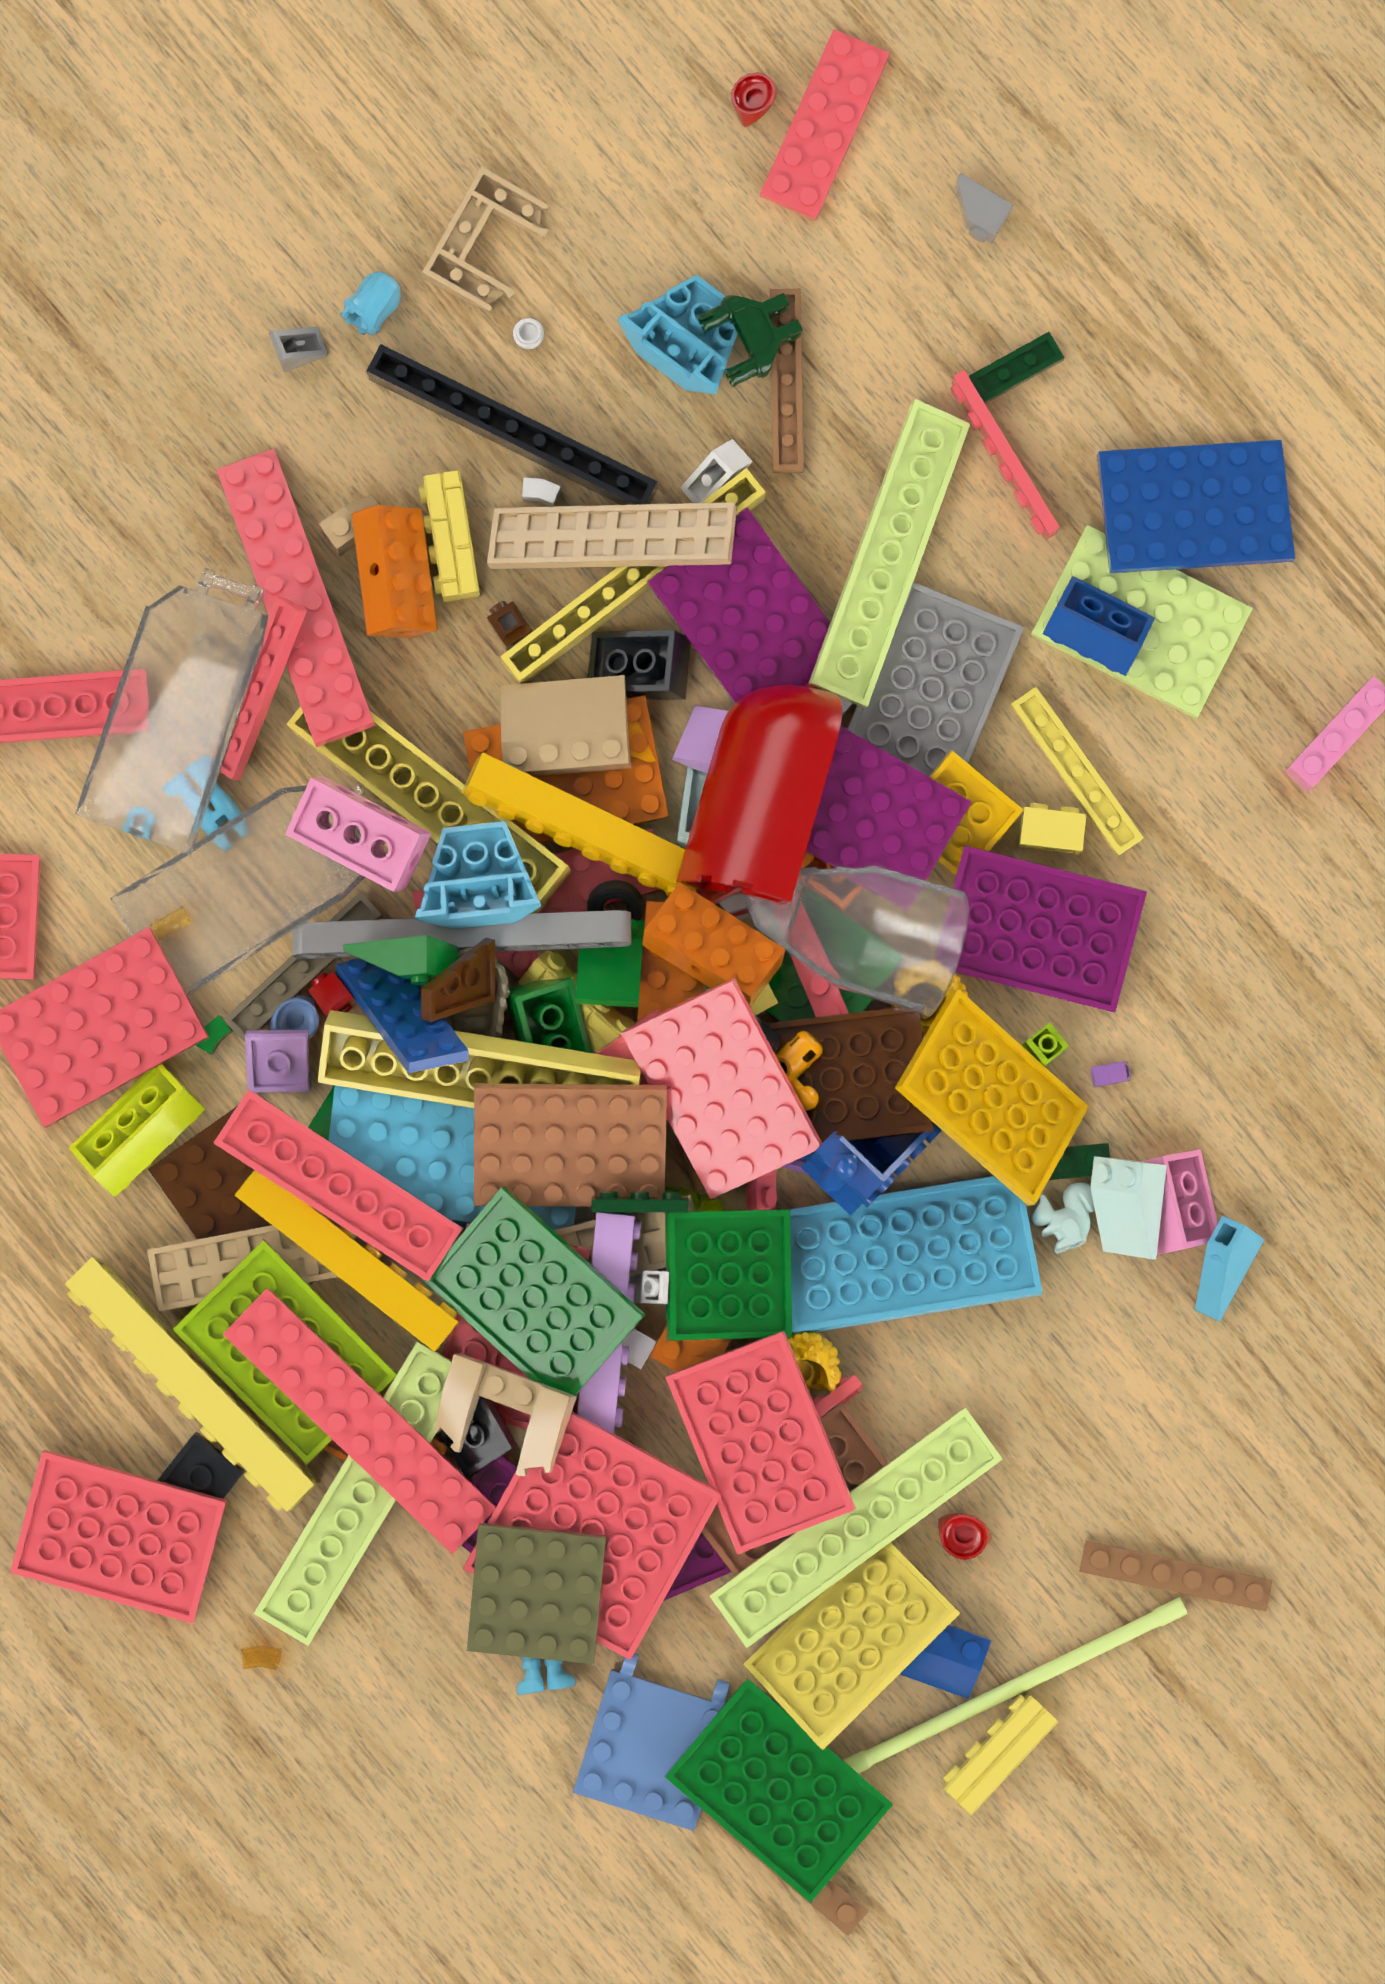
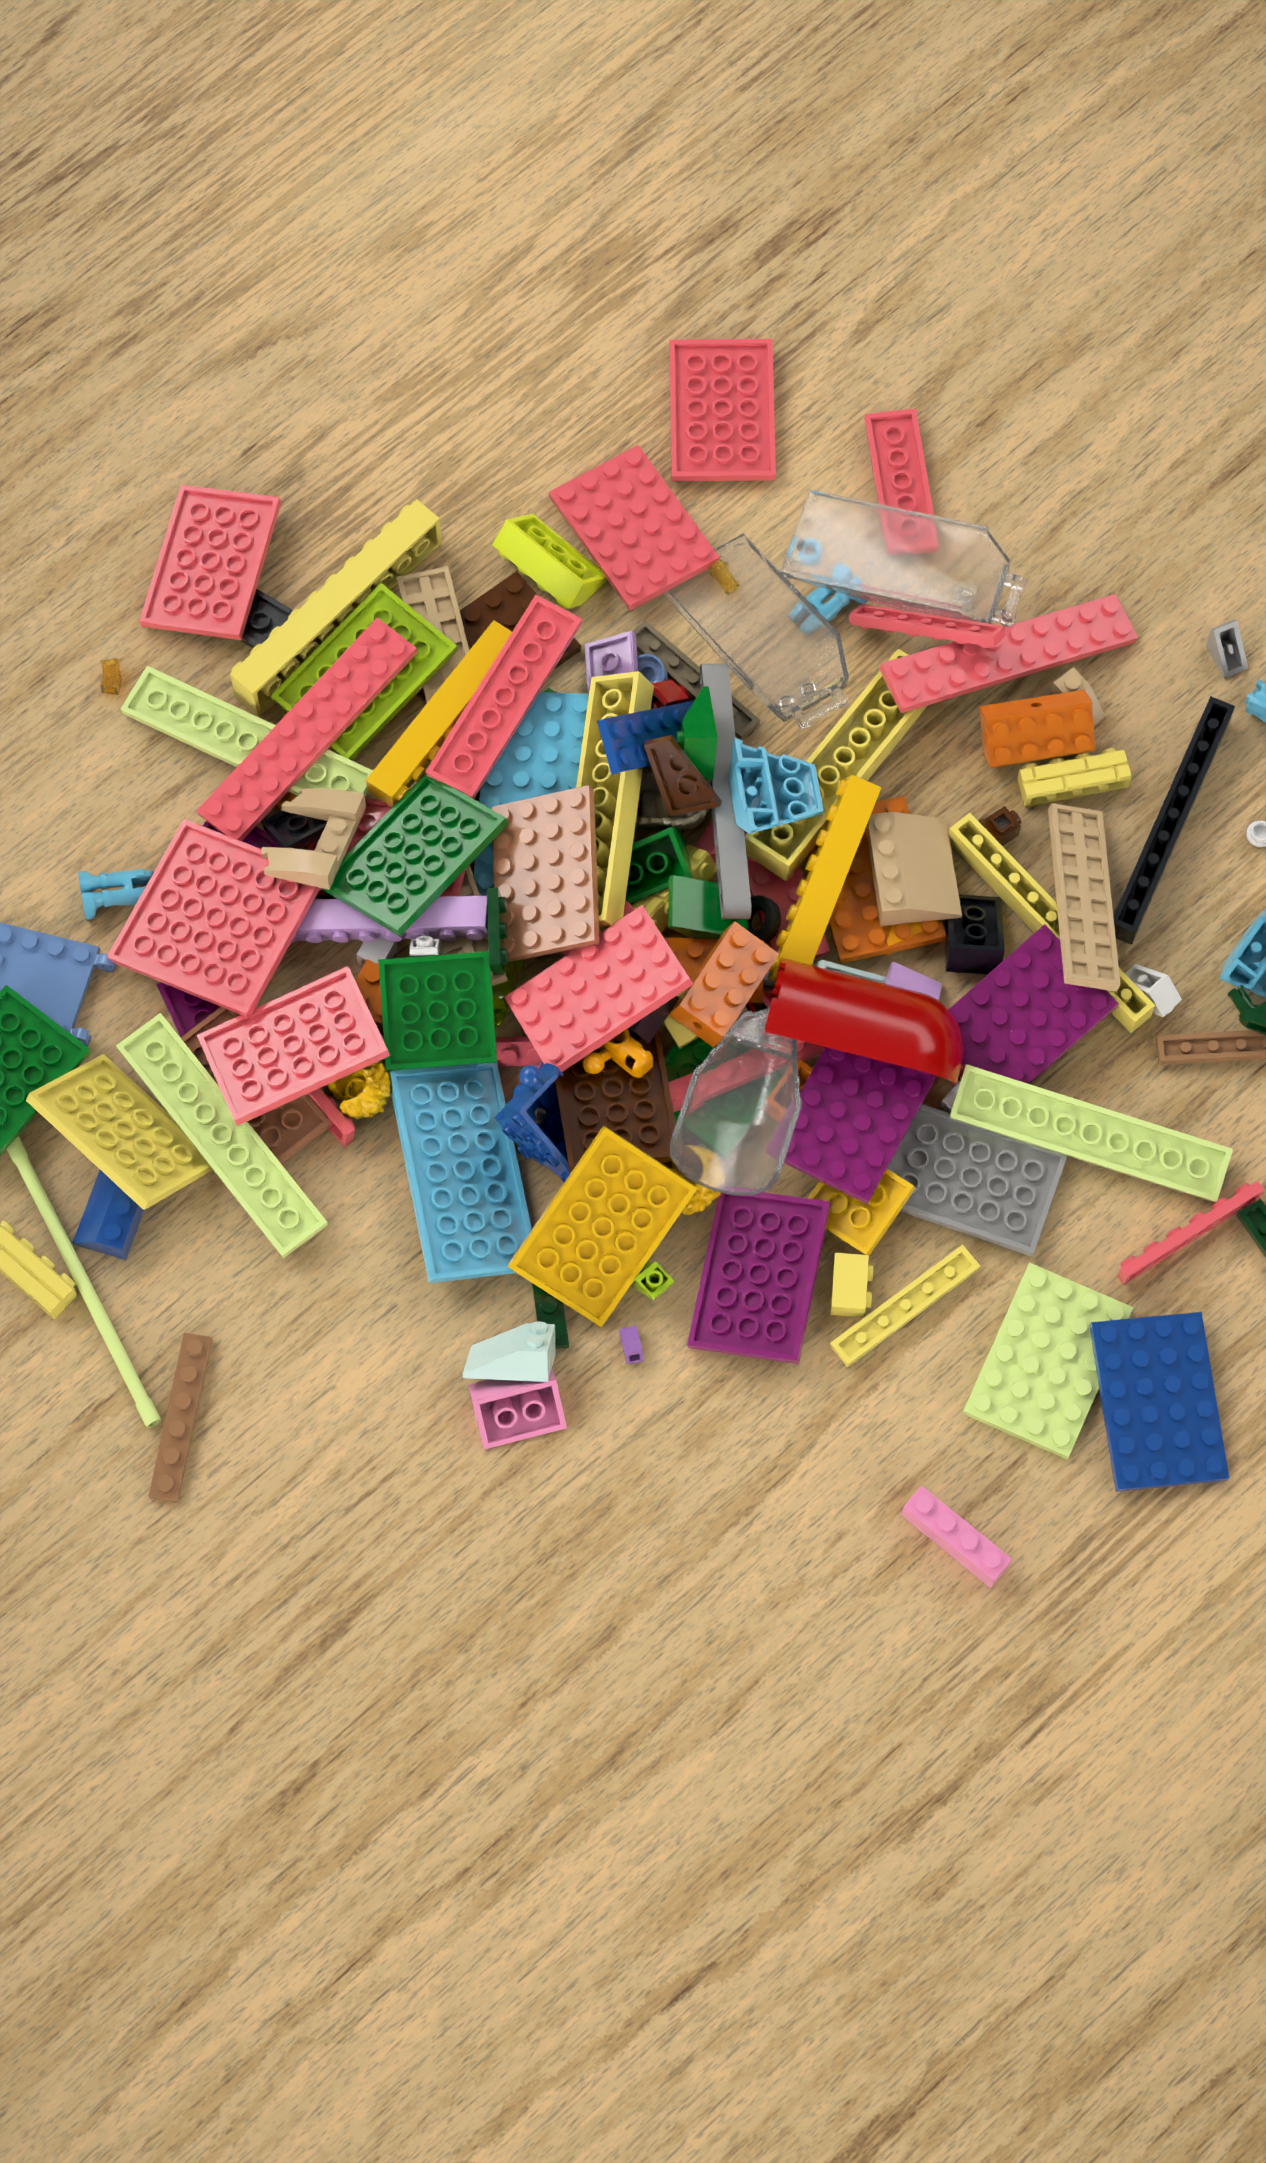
camera: 90 degrees right, 15 degrees down
(217, 1031) = (630, 617): green piece -> none
(339, 842) = (804, 694): bright pink brick -> none
(536, 1593) = (162, 875): olive plate -> none
(540, 491) = (1121, 849): white piece -> none
(963, 1535) = (214, 1231): red piece -> none
(1069, 1223) = (494, 1311): light aqua animal -> none
(1098, 626) = (1039, 1312): blue slope -> none
(1225, 1265) = (462, 1447): medium azure slope -> none

